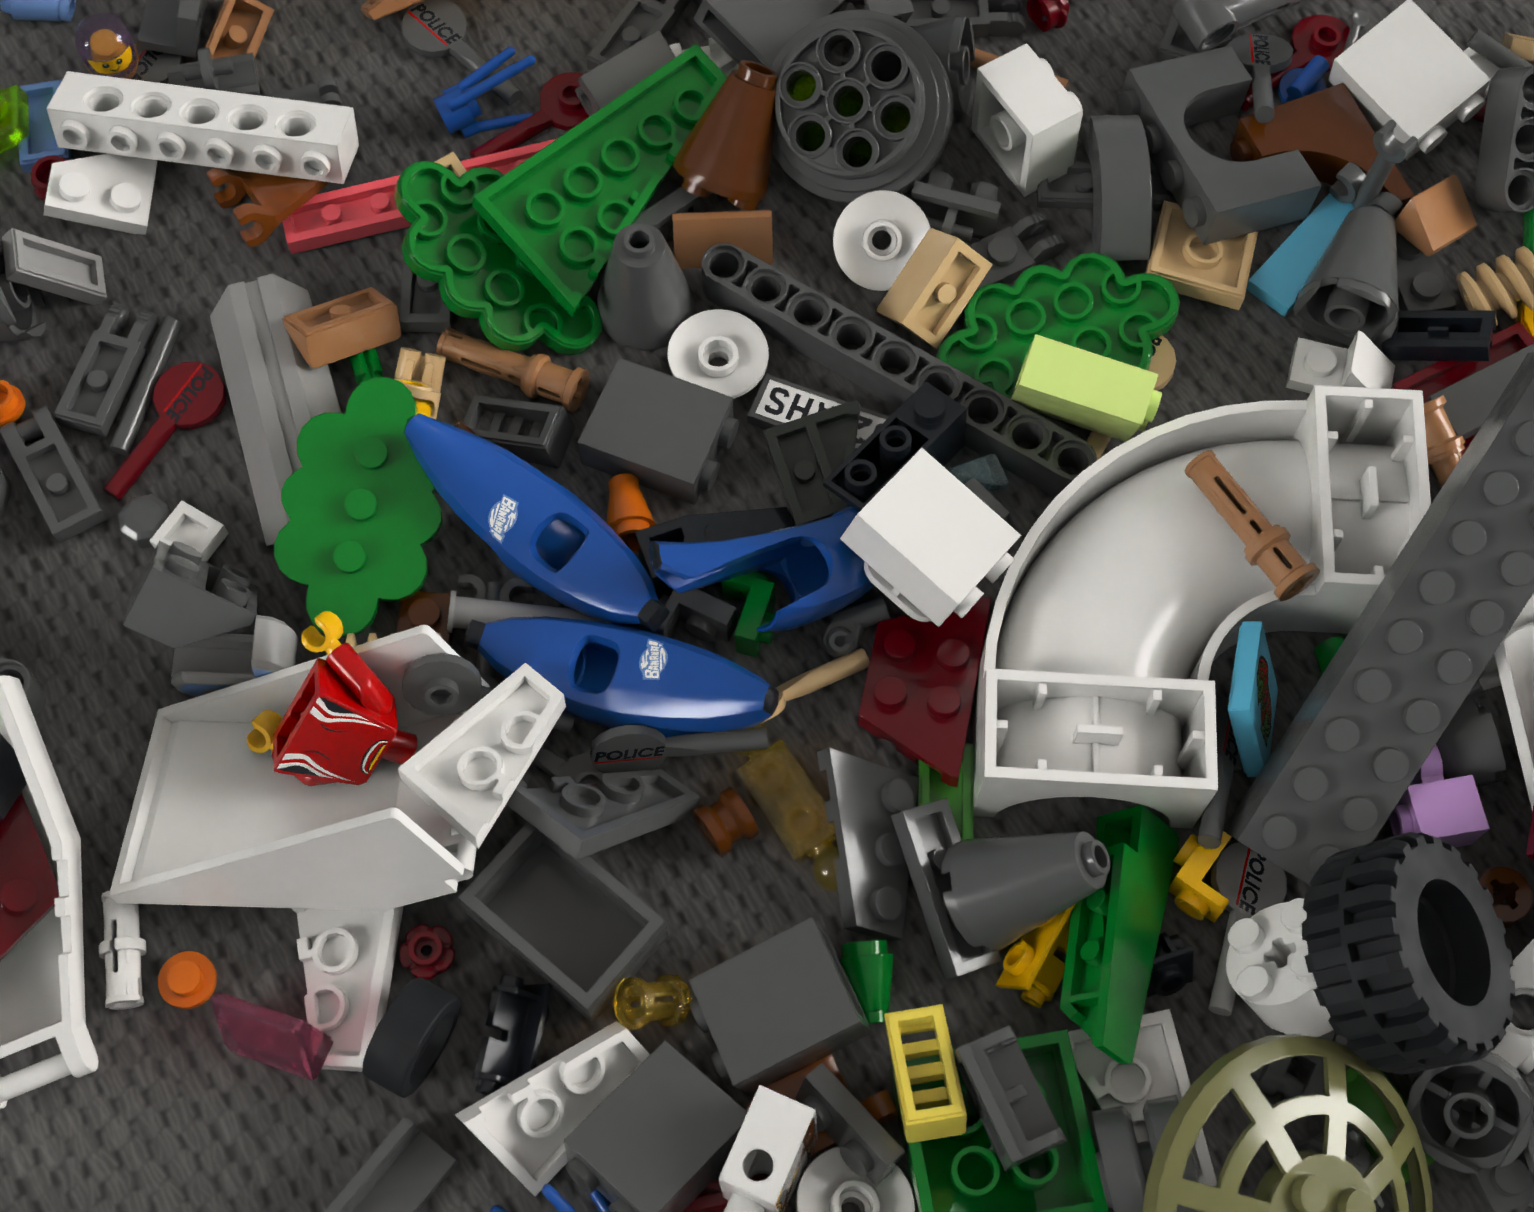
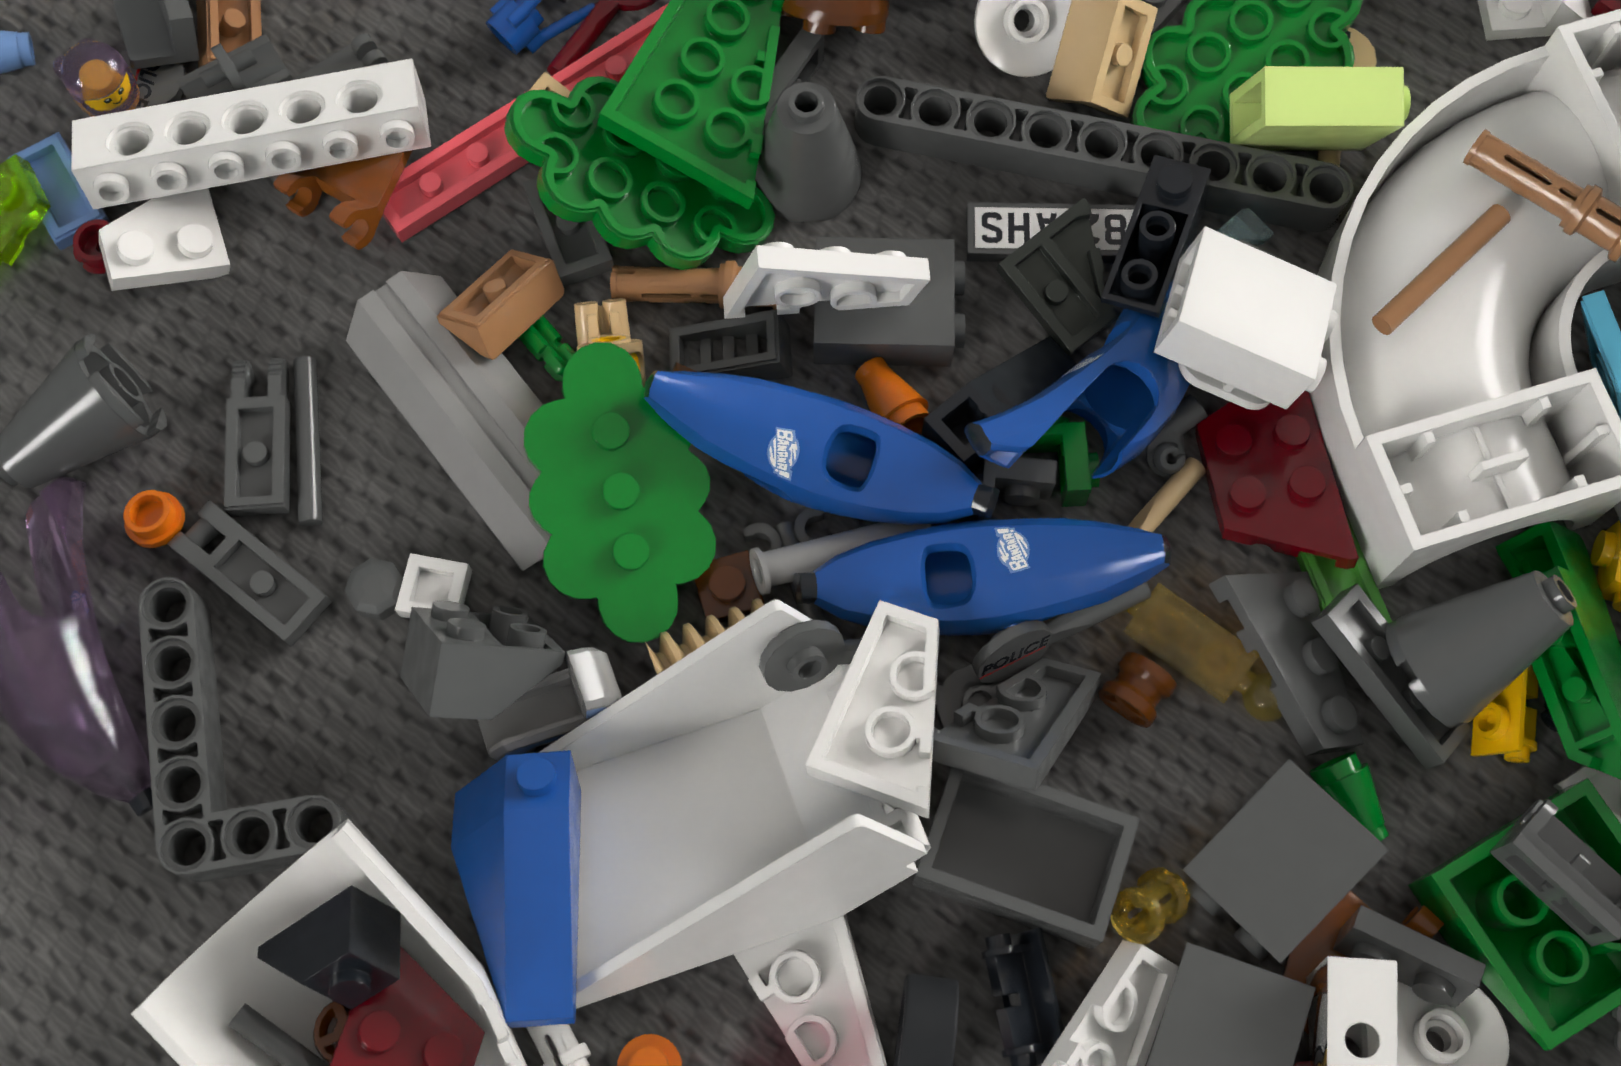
camera: 20 degrees left, 5 degrees up
(53, 267) = (151, 345): light grey tile -> none
(146, 785) = (521, 880): none -> blue wedge
(185, 399) = (359, 439): dark red piece -> none
(337, 720) = (703, 736): red torso -> none
(438, 961) = (906, 944): dark red plate -> none
(584, 384) = (804, 276): none -> white wing
(700, 230) = (848, 67): medium nougat slope -> none
(724, 336) = (911, 176): white dish -> none
(936, 1121) = (1494, 863): light yellow slope -> none
(1124, 555) = (1441, 269): none -> medium nougat bar

